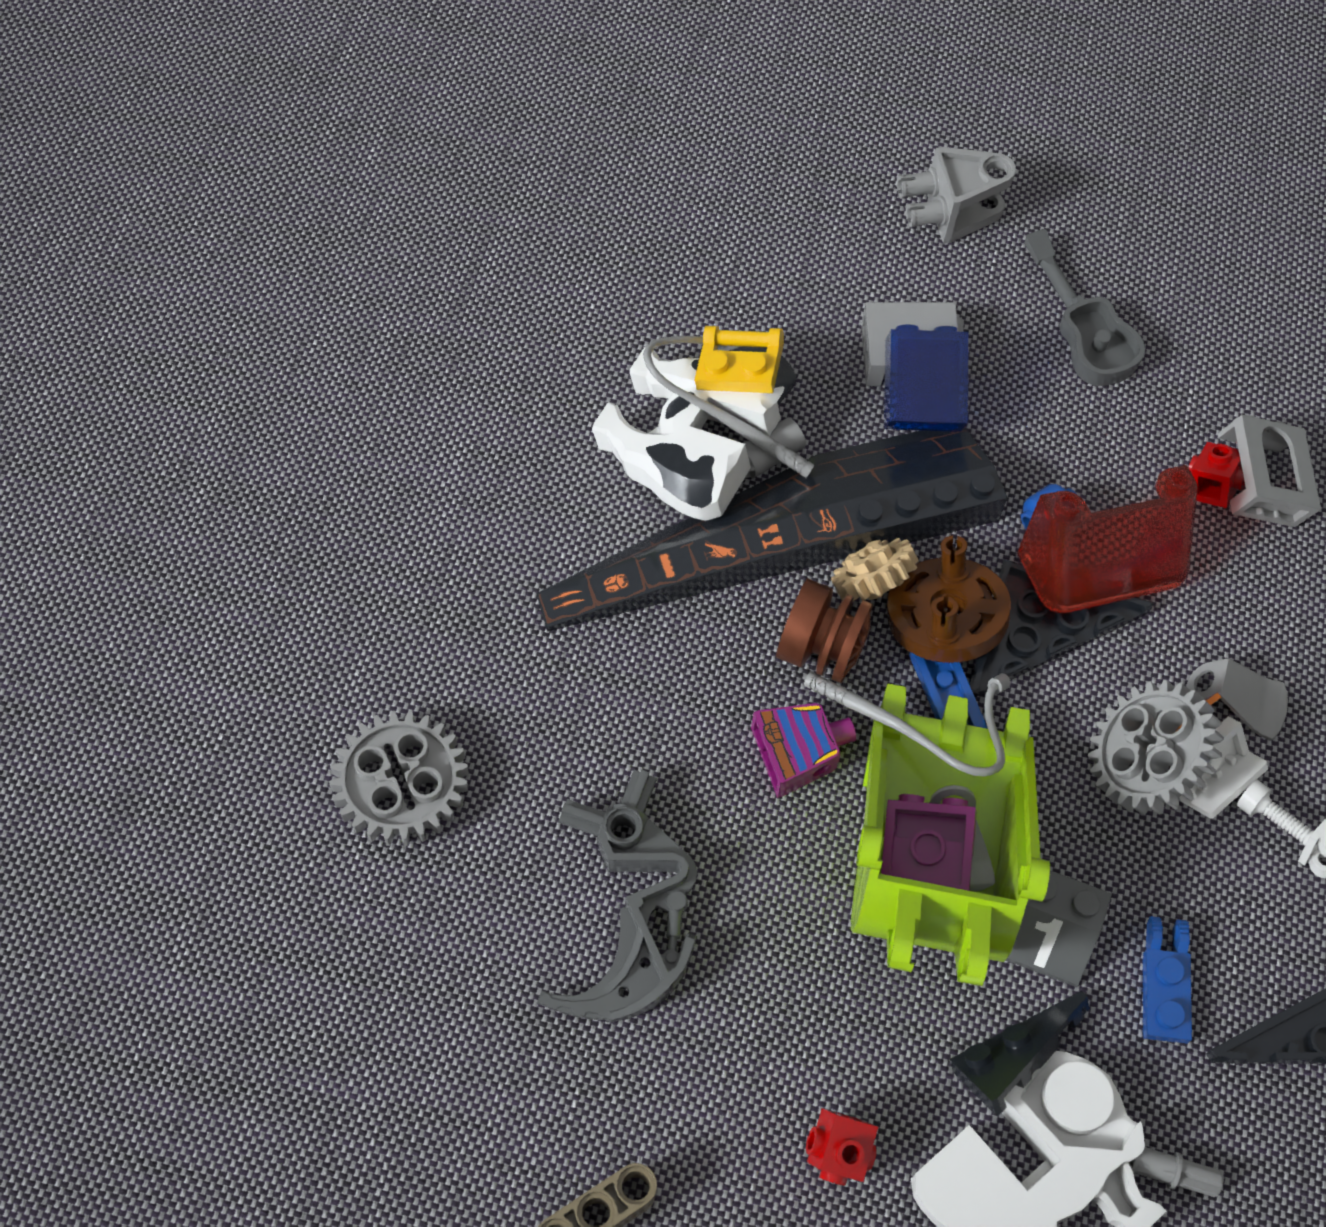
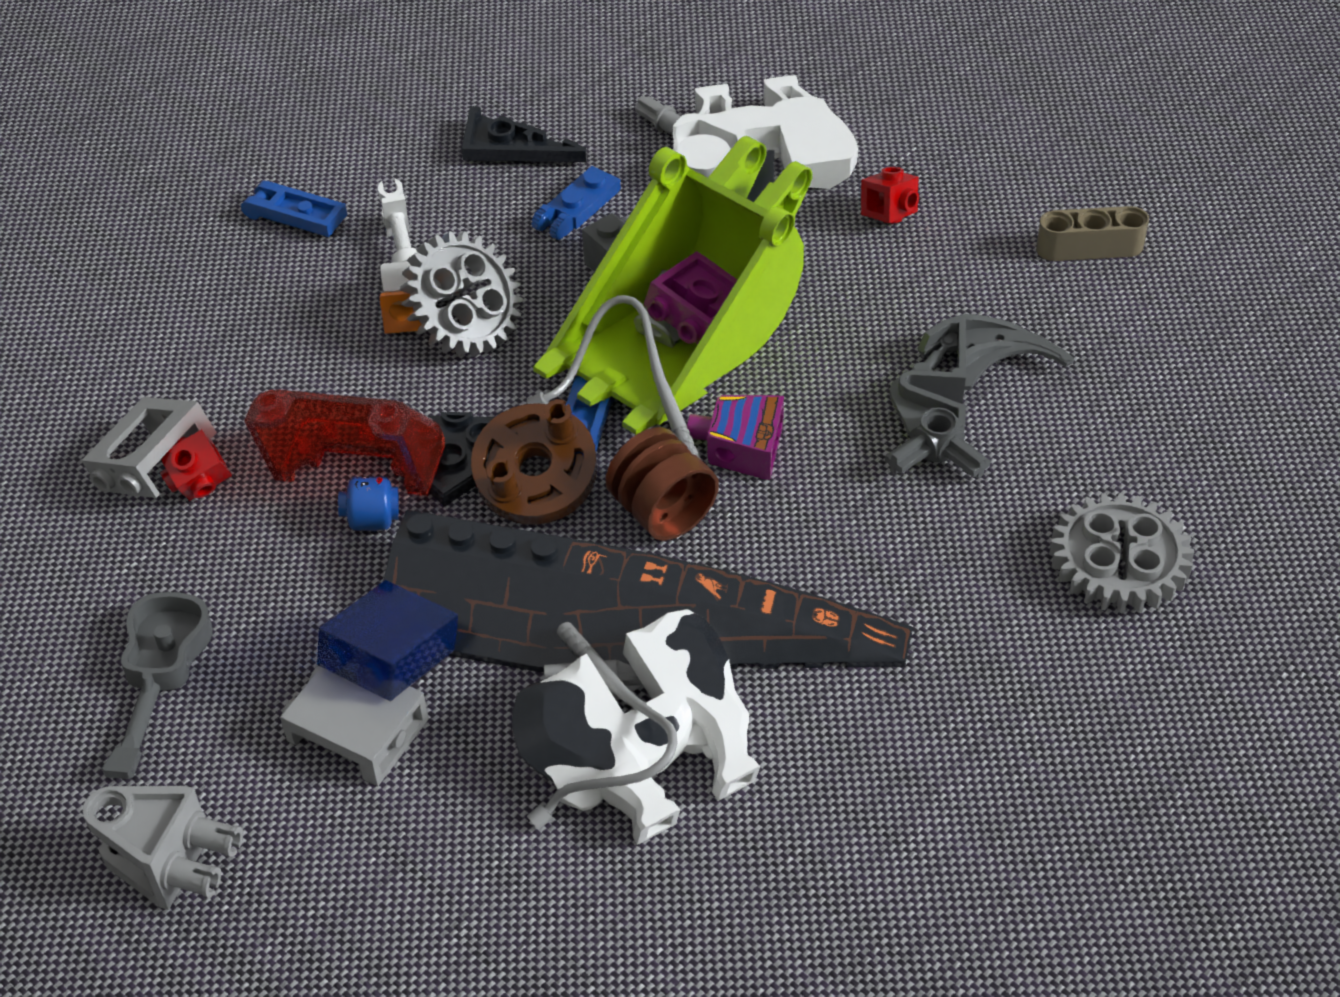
camera: 145 degrees left, 15 degrees down
(739, 369) = (575, 711): yellow plate -> none
(875, 569) = (590, 499): tan gear -> none
(1253, 698) = (348, 321): light grey piece -> none

